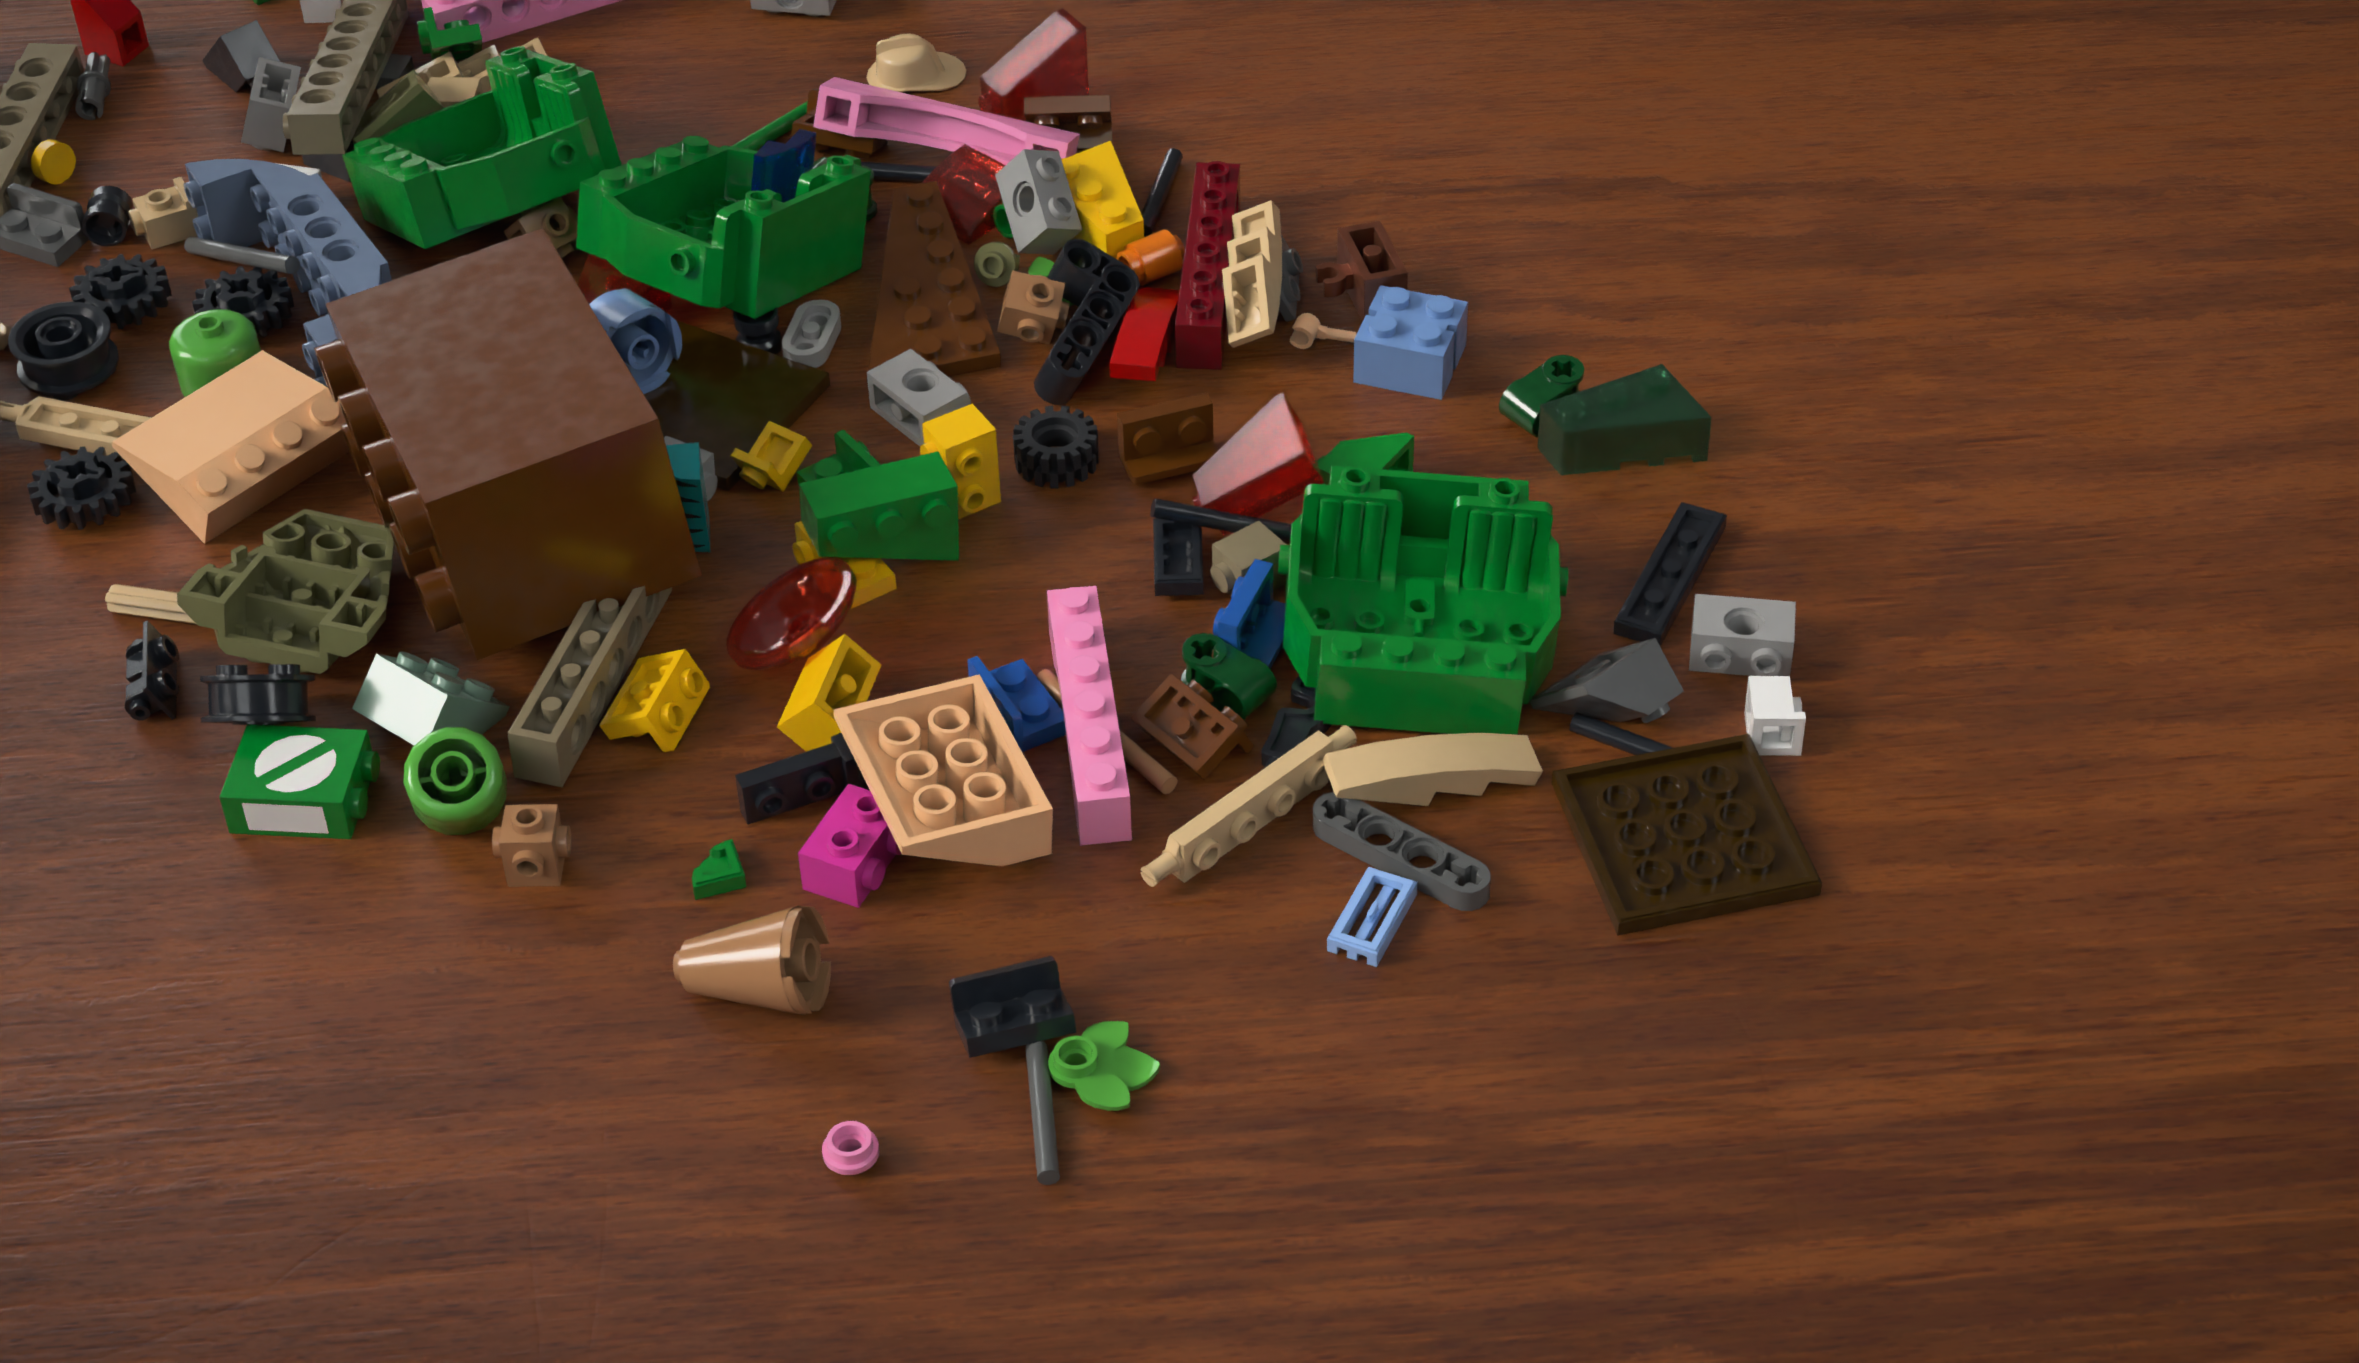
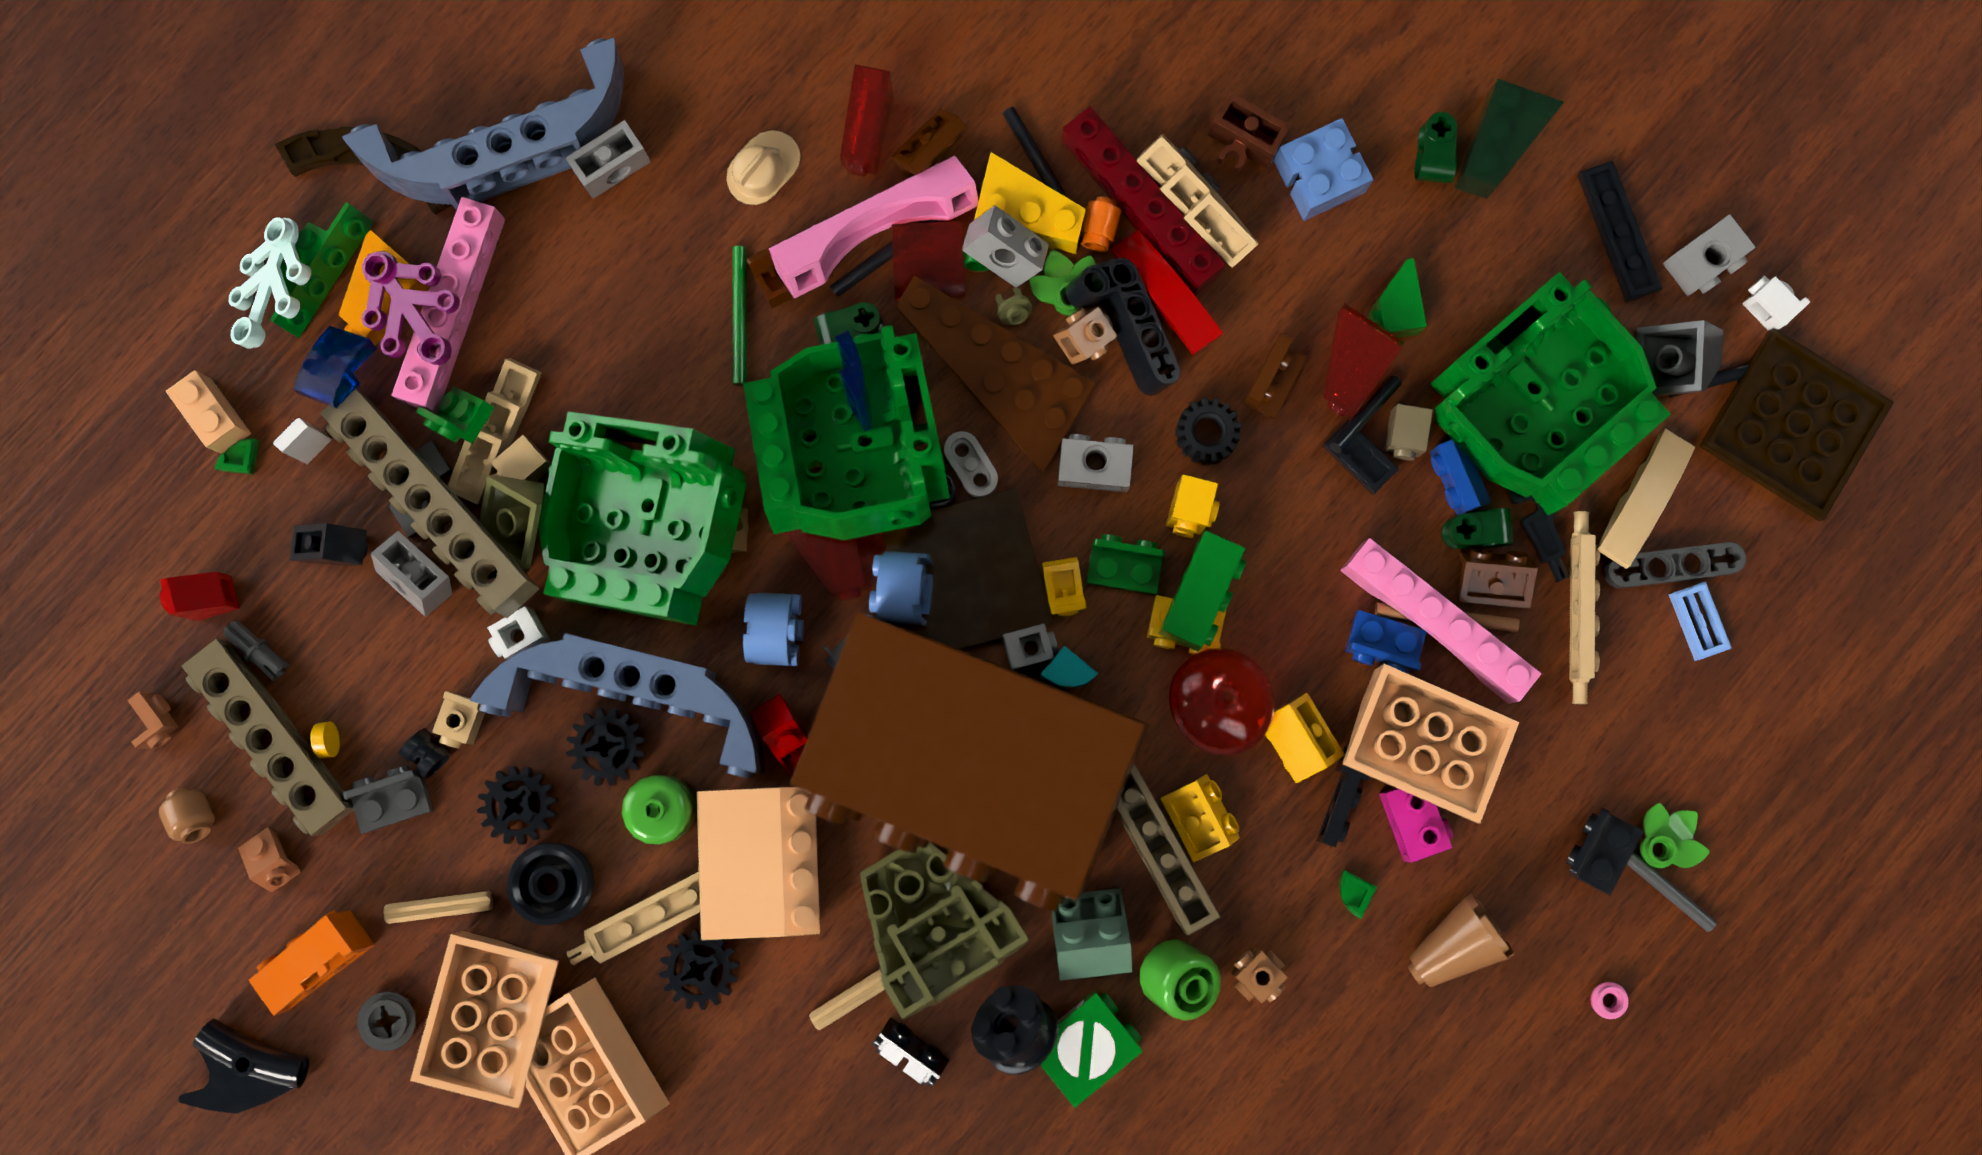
camera: 45 degrees left, 40 degrees up
(242, 255) = (563, 716): dark grey bar -> none
(1308, 327) = (1245, 207): light nougat hand -> none

